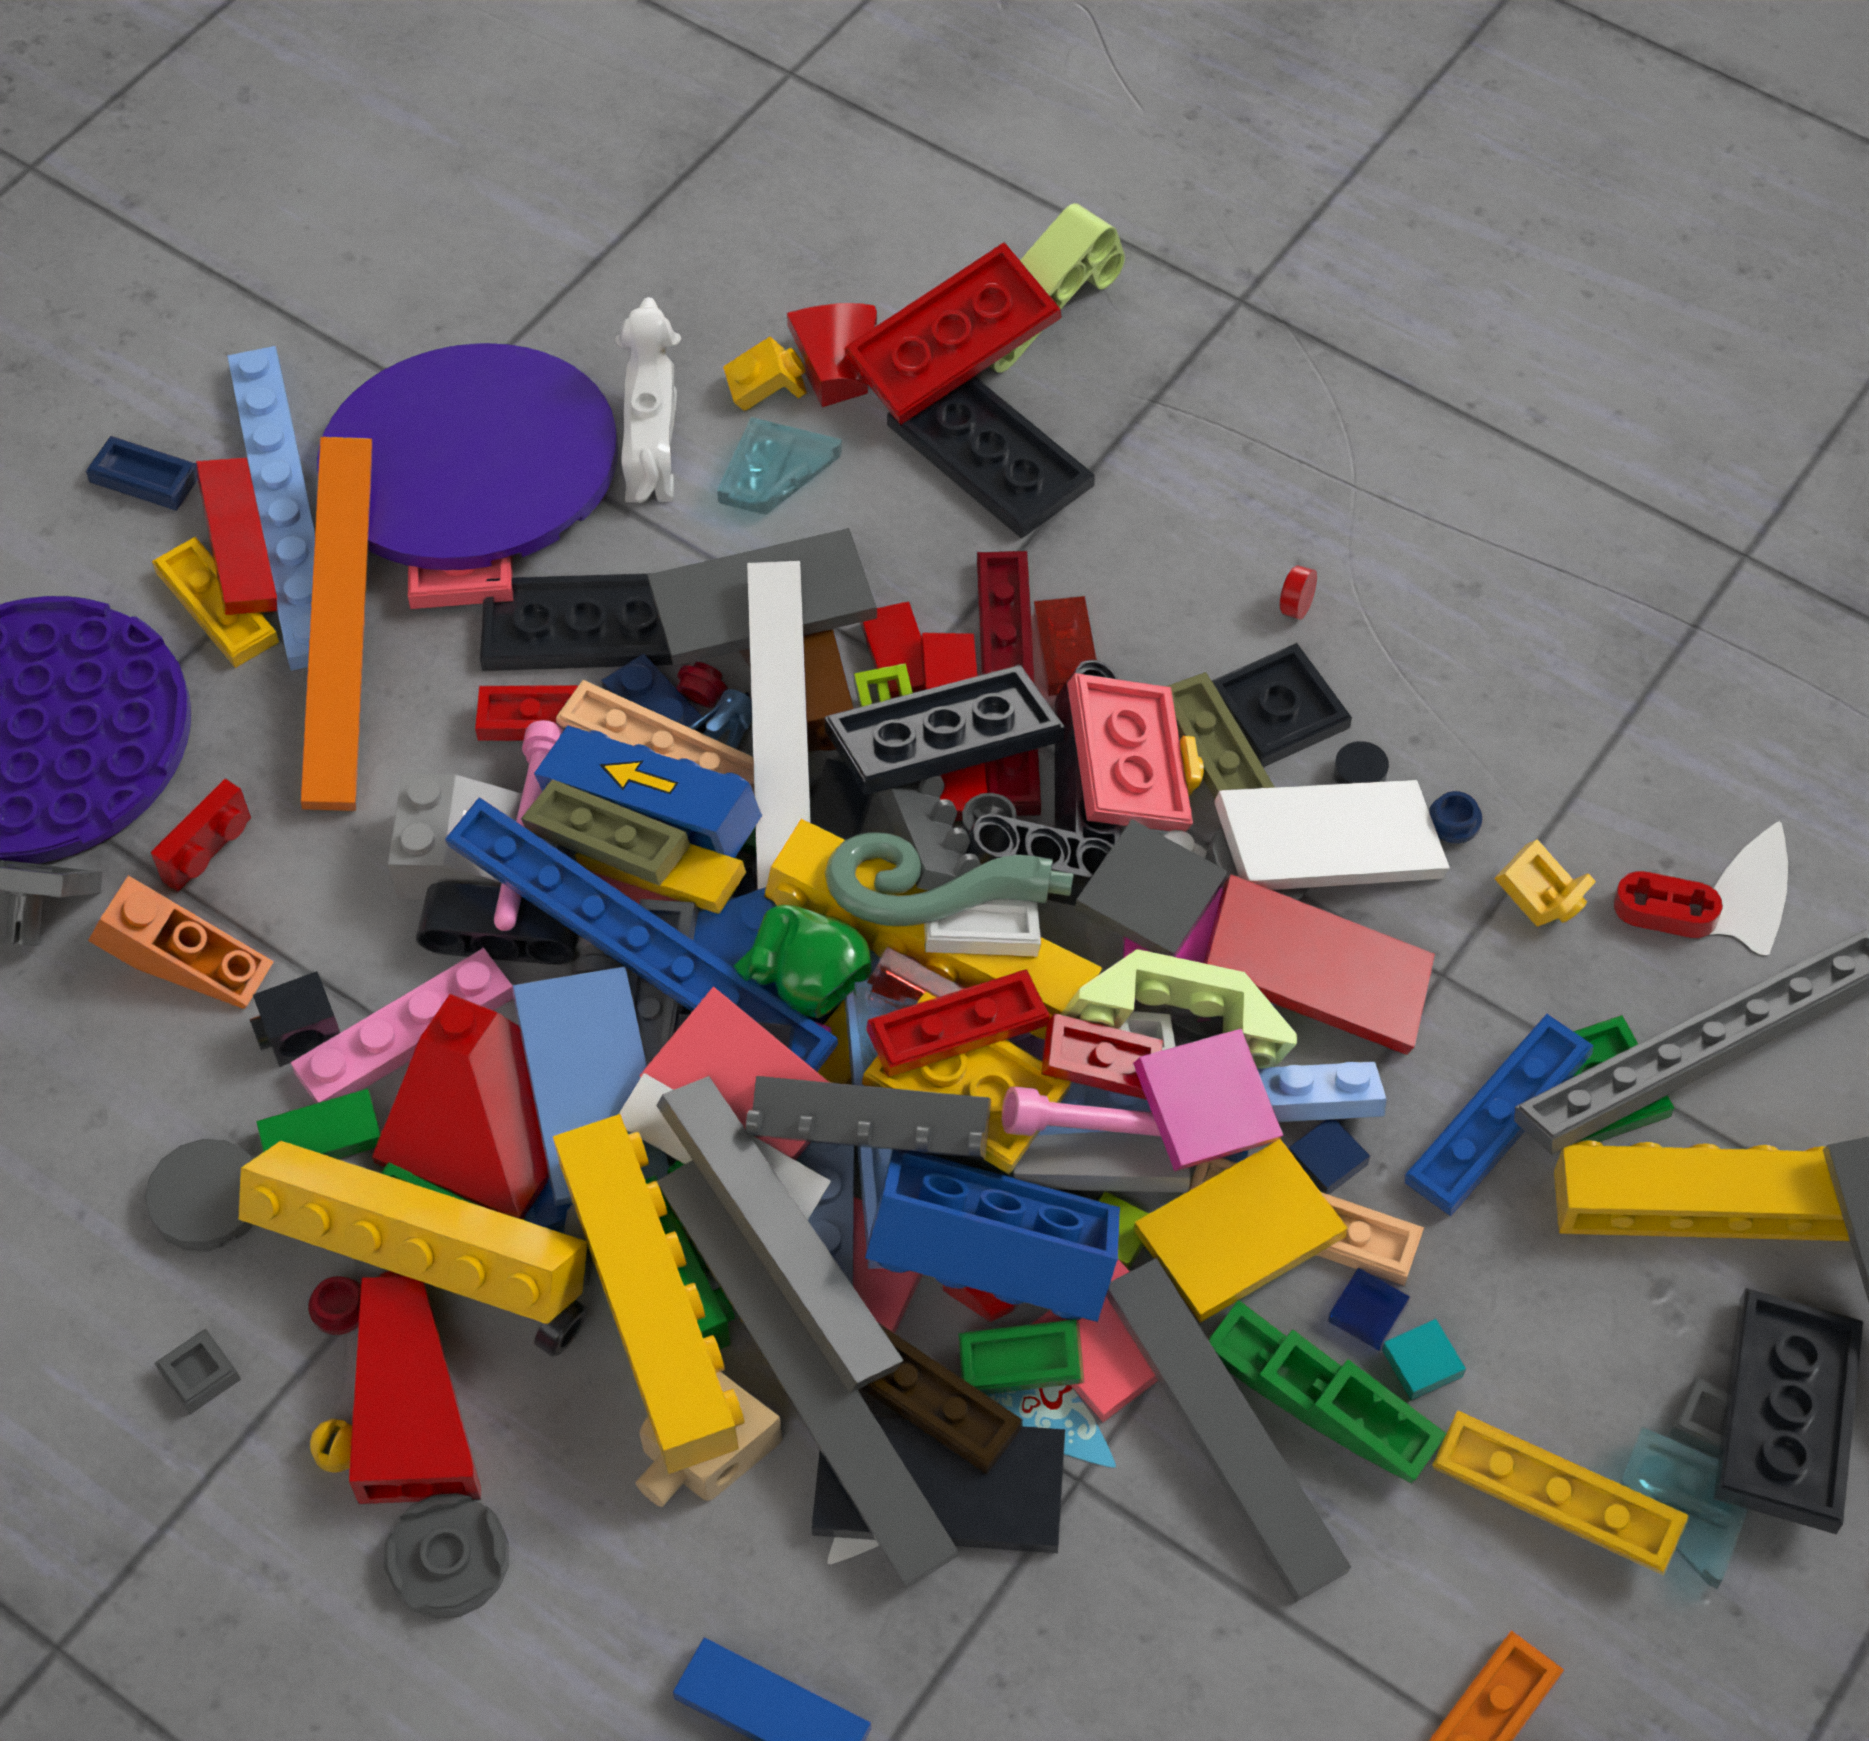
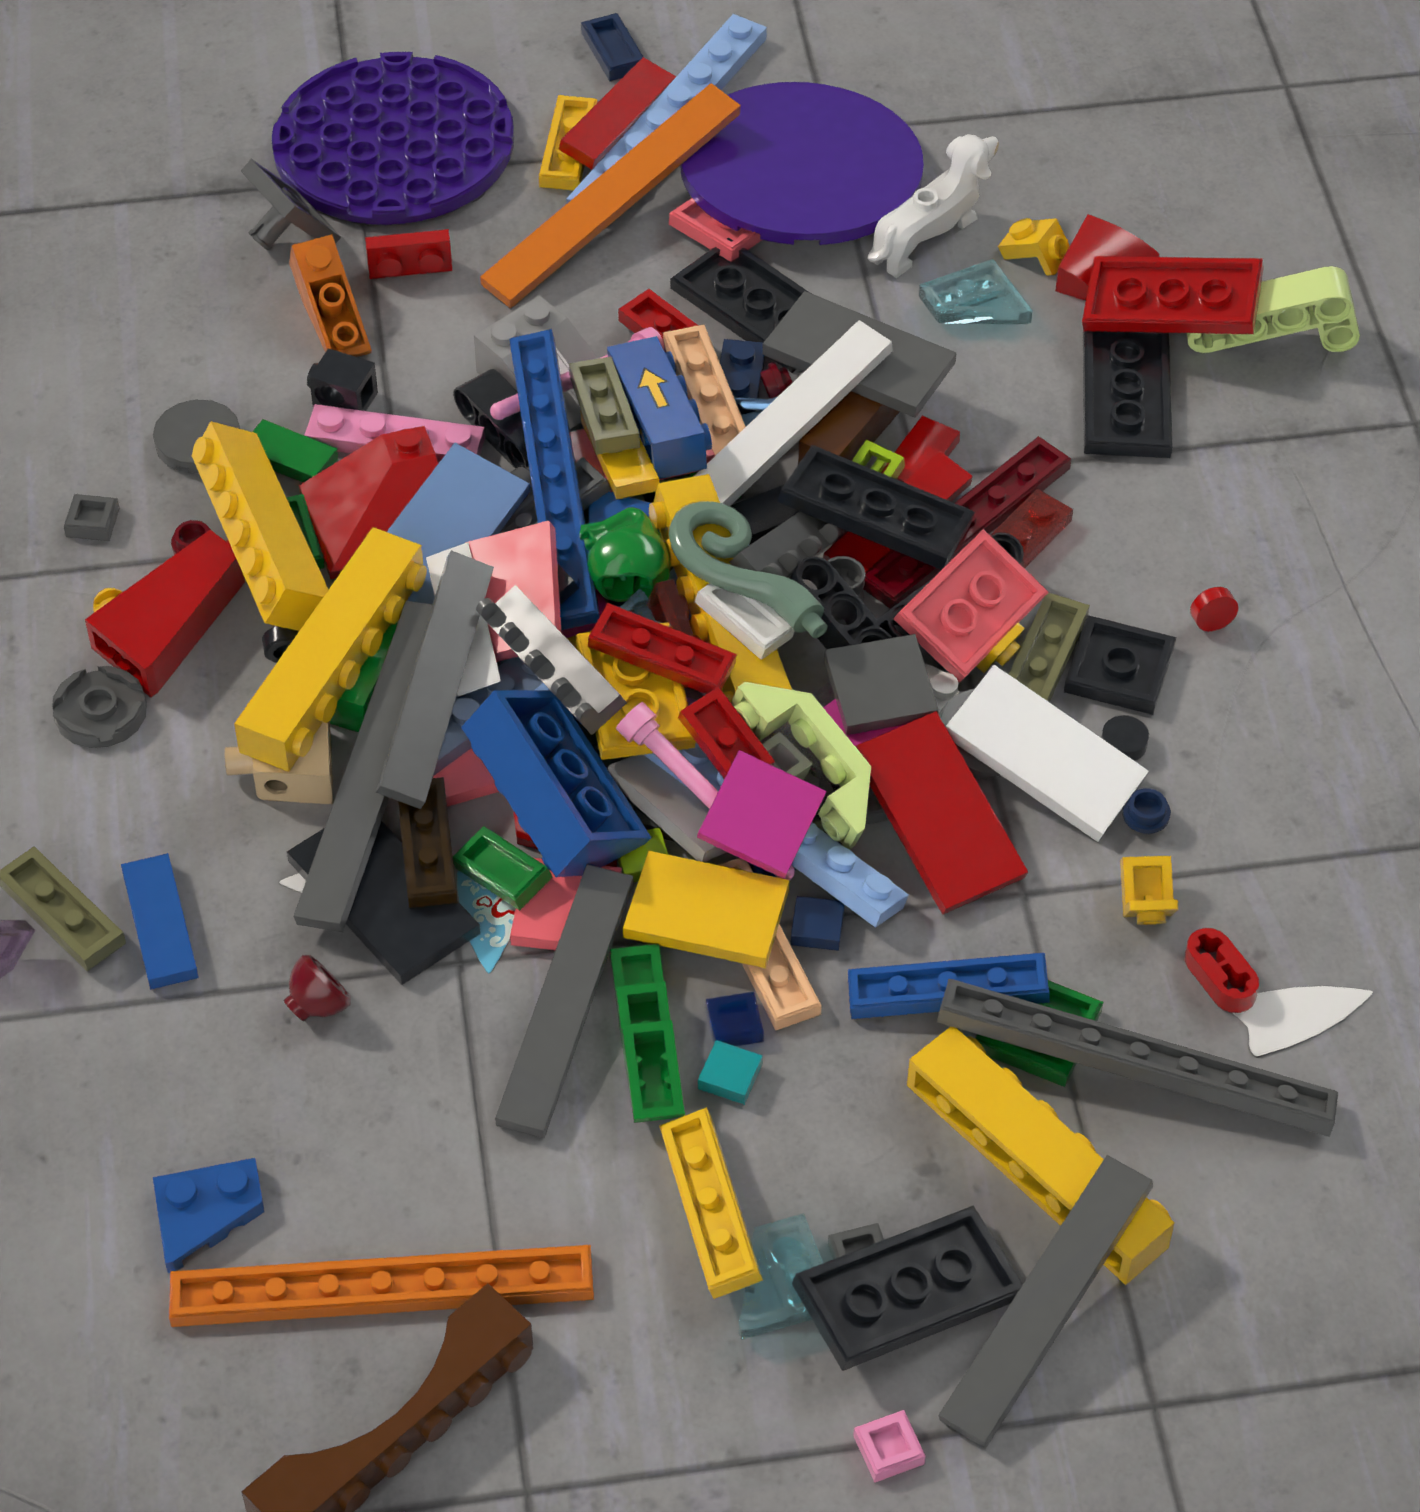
camera: 45 degrees right, 5 degrees down
(1006, 1636) = (315, 990): none -> dark red brick

